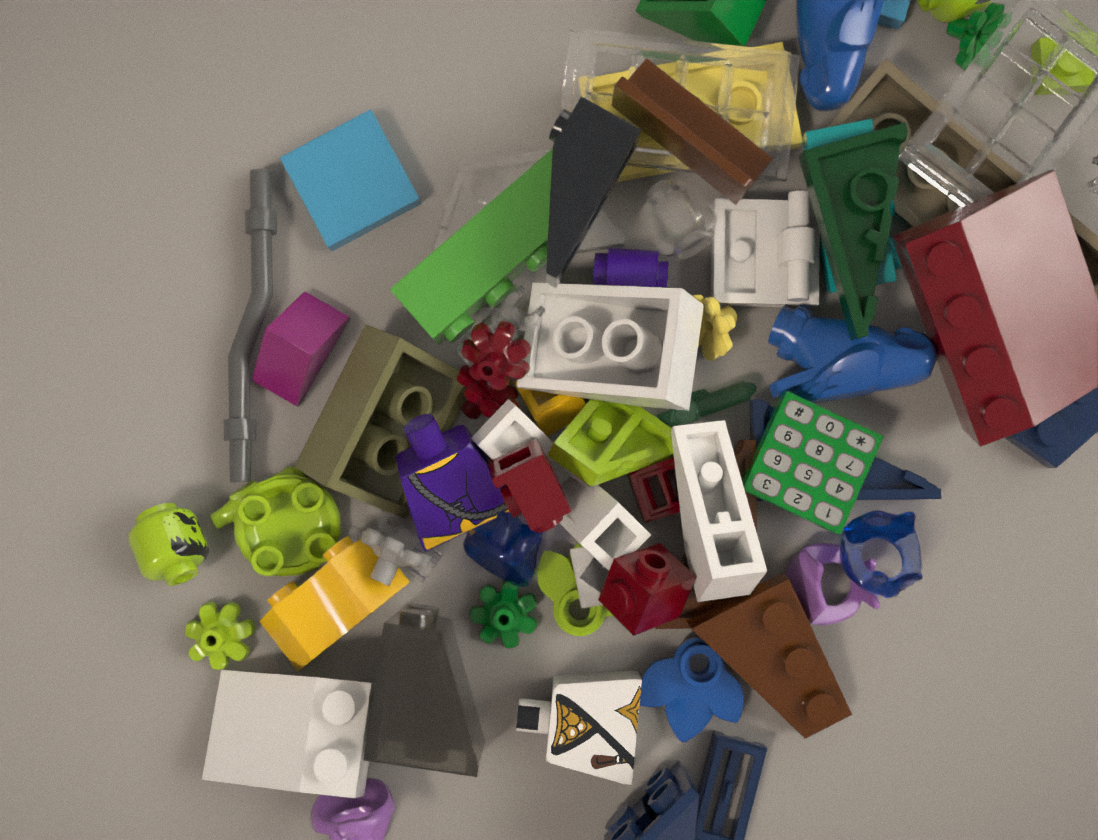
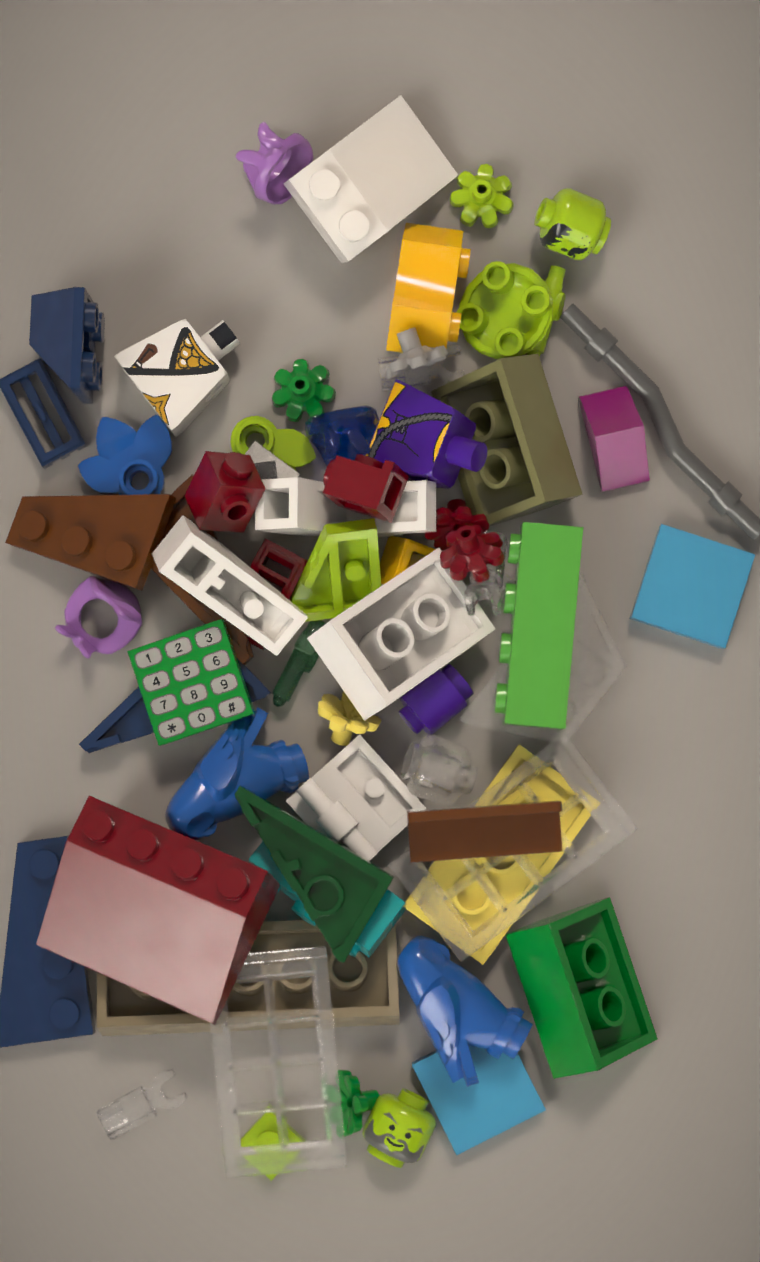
camera: 135 degrees right, 0 degrees up
(423, 698) = (305, 285): clear smoke slope -> none
(586, 163) = (525, 720): black slope -> none
(895, 529) = (91, 693): clear blue piece -> none

